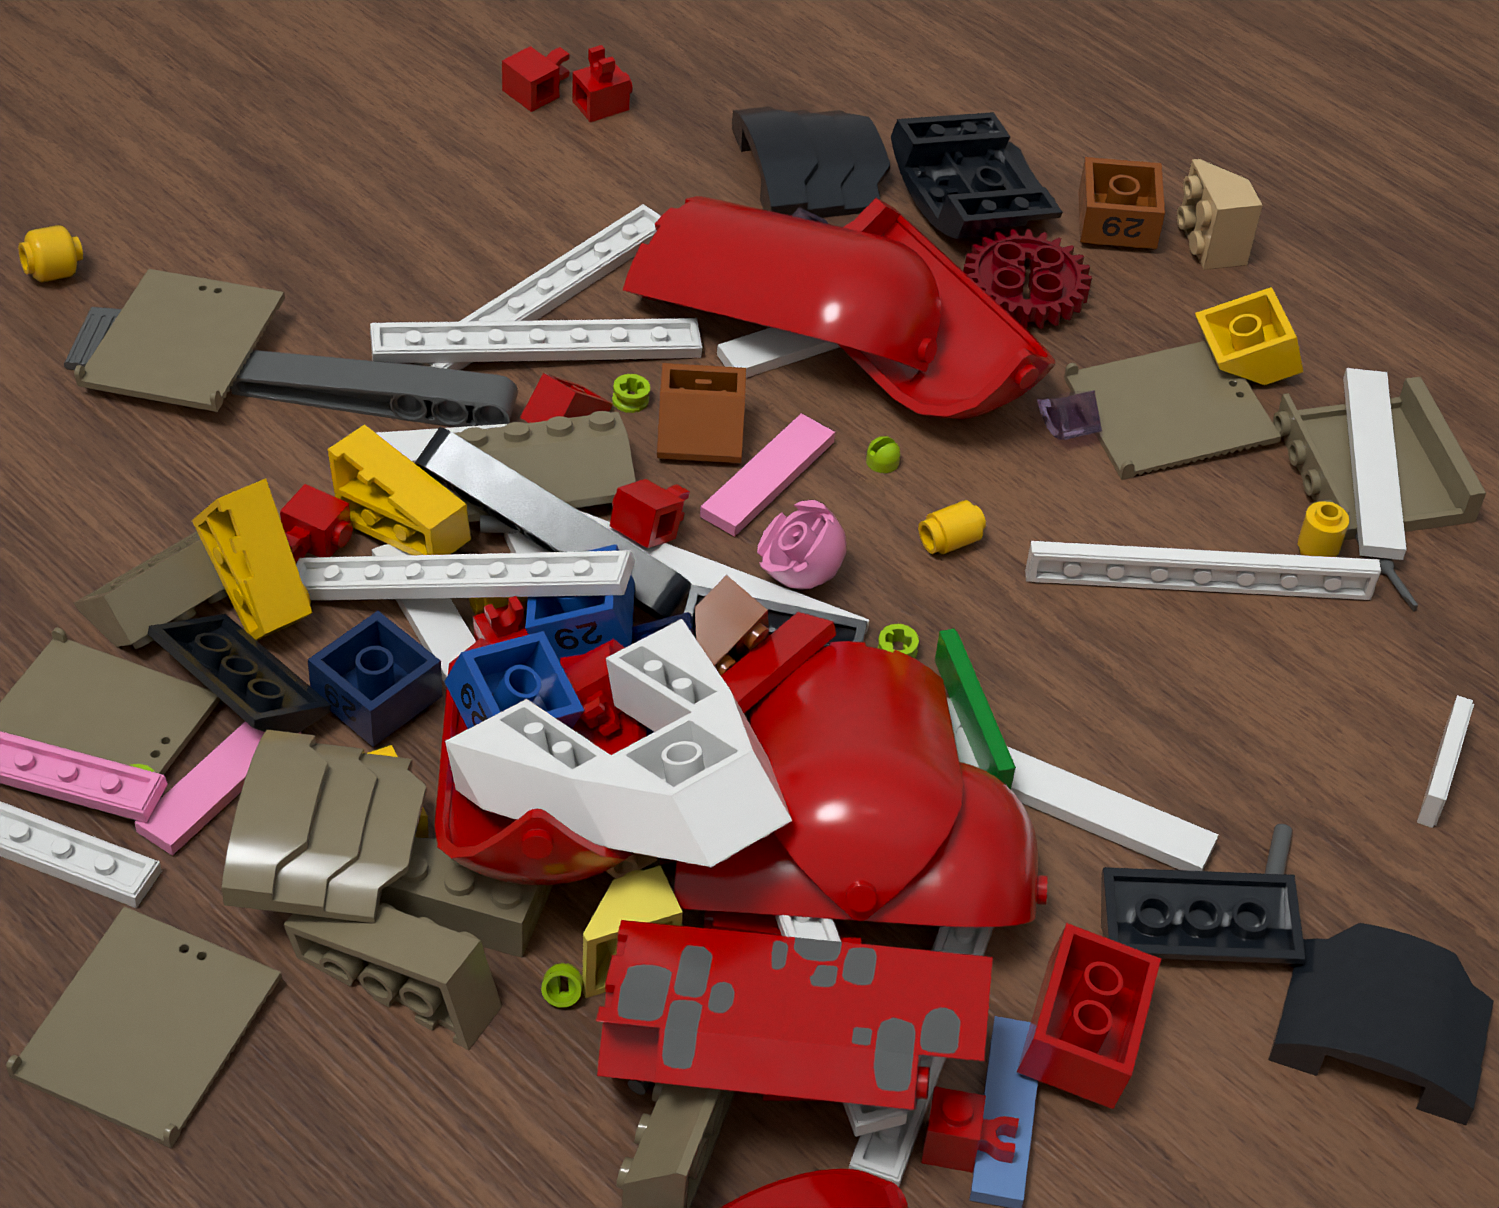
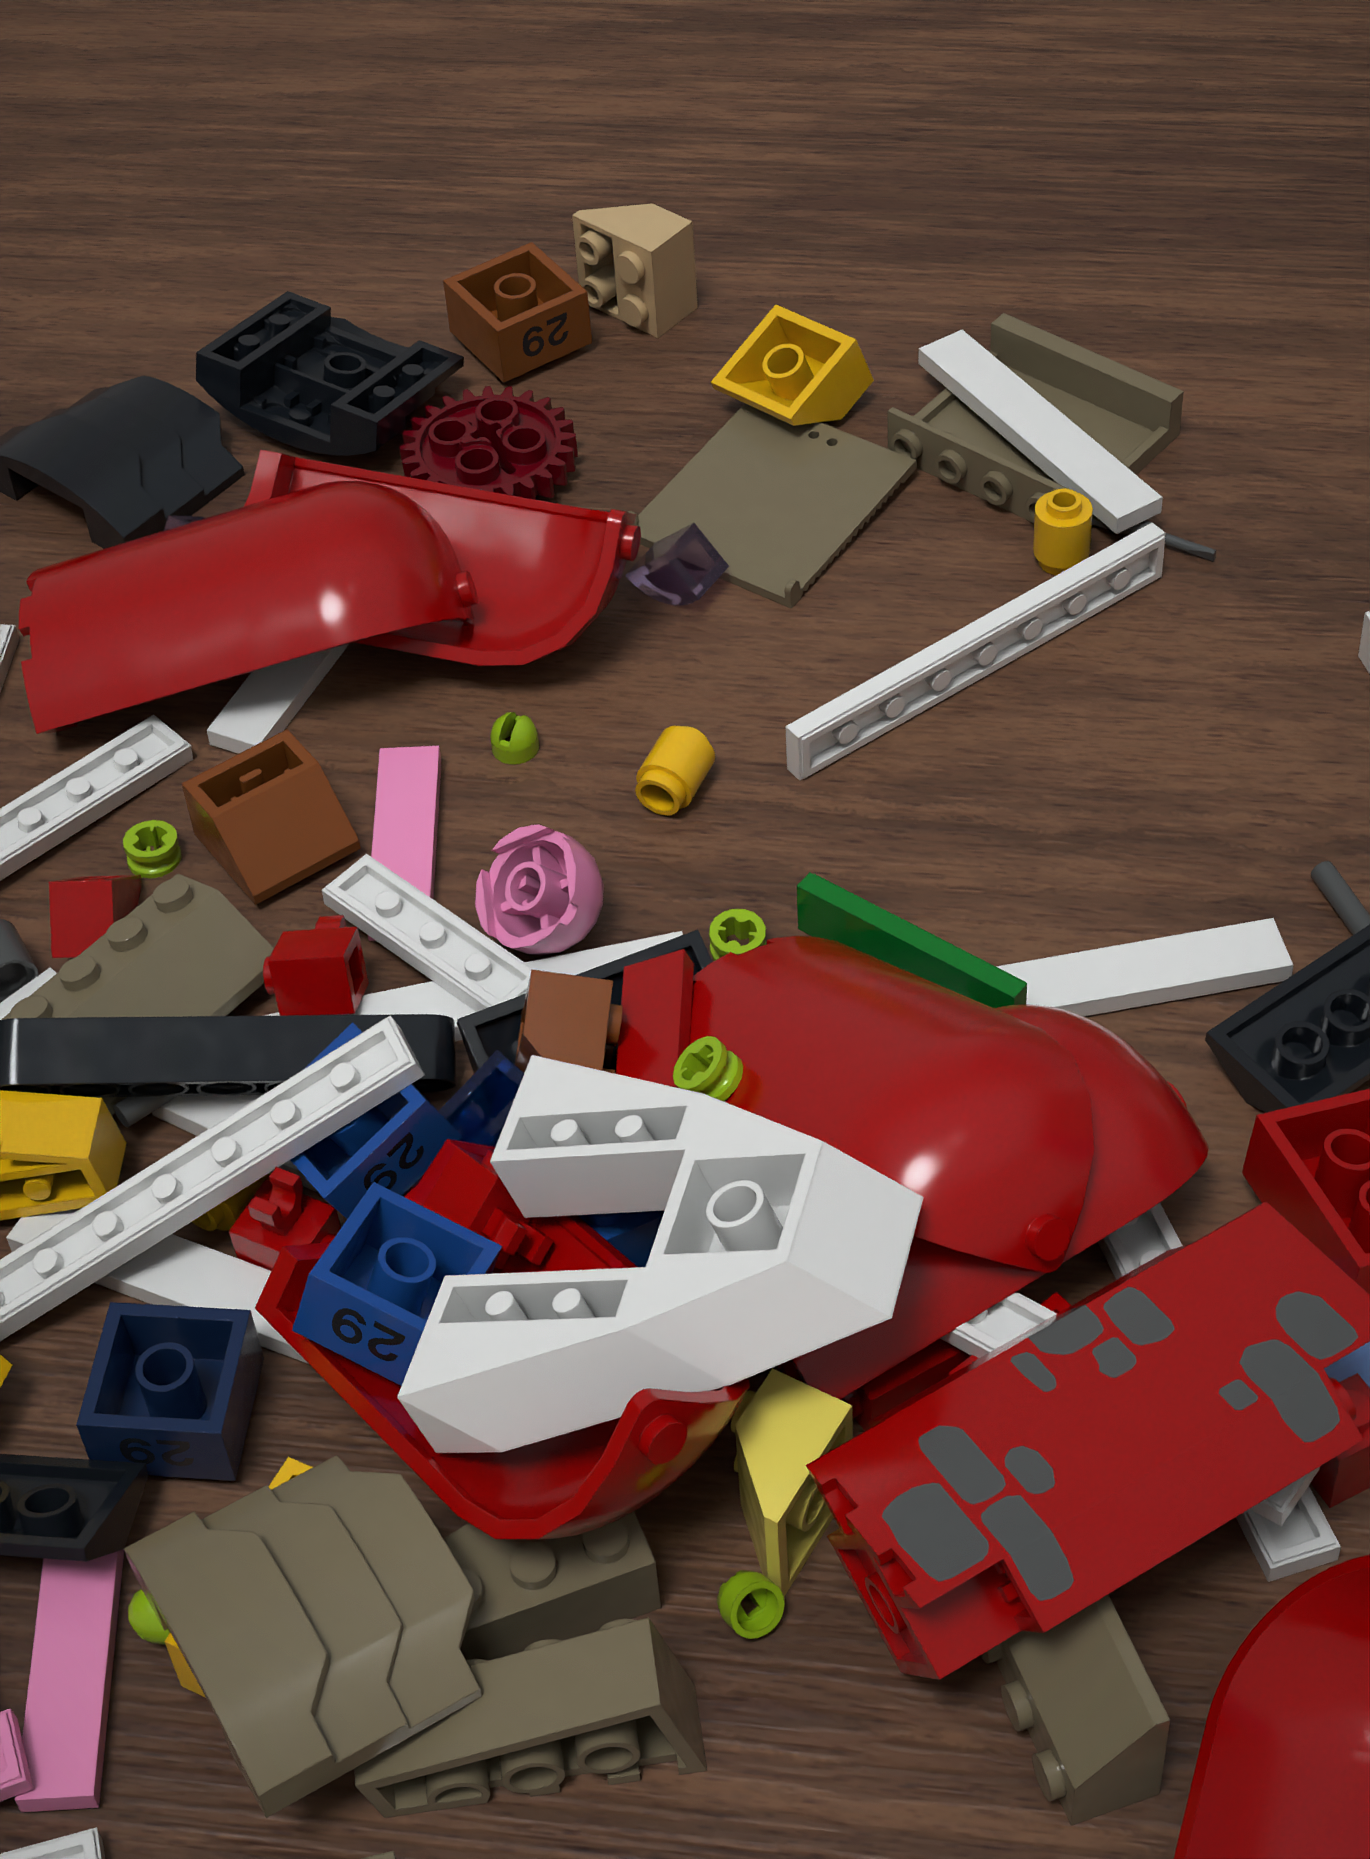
camera: 30 degrees left, 0 degrees up
(725, 528) = (426, 935): none -> white tile
(774, 692) = (708, 1069): none -> lime bush

